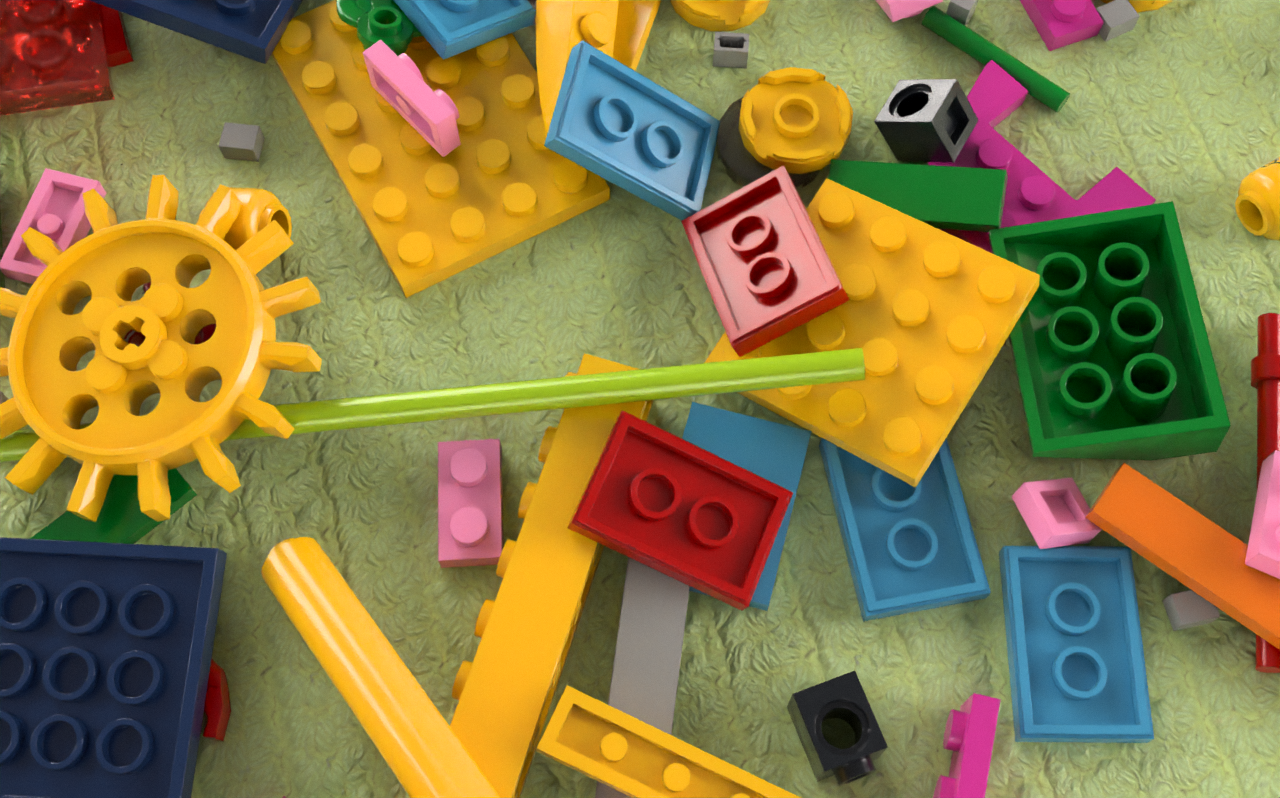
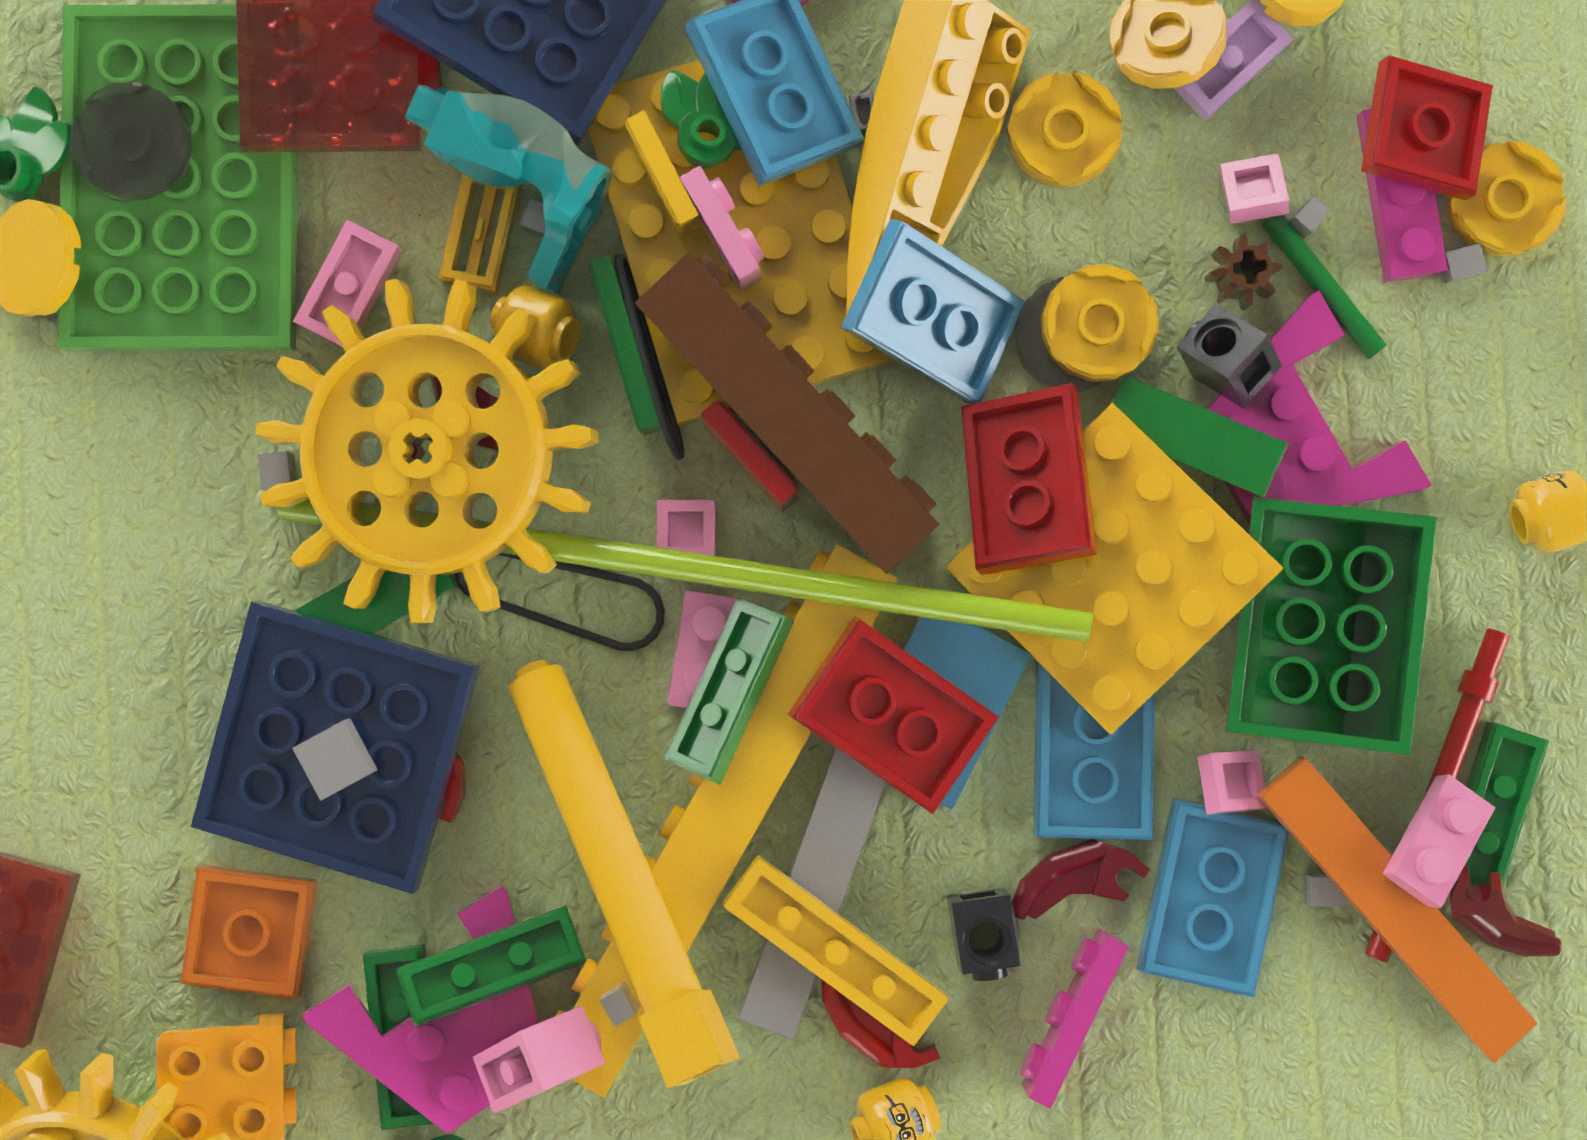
camera: 10 degrees right, 20 degrees up
(71, 680) = (335, 759): none -> light grey tile
(204, 156) = (492, 280): none -> yellow tile
(209, 69) = (517, 144): none -> teal hips
(312, 509) = (624, 646): none -> black piece
(339, 228) = (624, 344): none -> green tile
(348, 64) = (662, 174): none -> yellow tile
(364, 233) = (649, 360): none -> black piece
(426, 370) = (687, 525): none -> bright pink plate
(479, 289) = (750, 455): none -> red tile
(499, 521) = (729, 690): none -> tile
(503, 226) = (787, 412): none -> reddish brown brick
(731, 50) = (1056, 217): light grey piece -> none
(917, 53) = (1251, 259): none -> reddish brown gear
(919, 645) = (1078, 869): none -> dark red piece

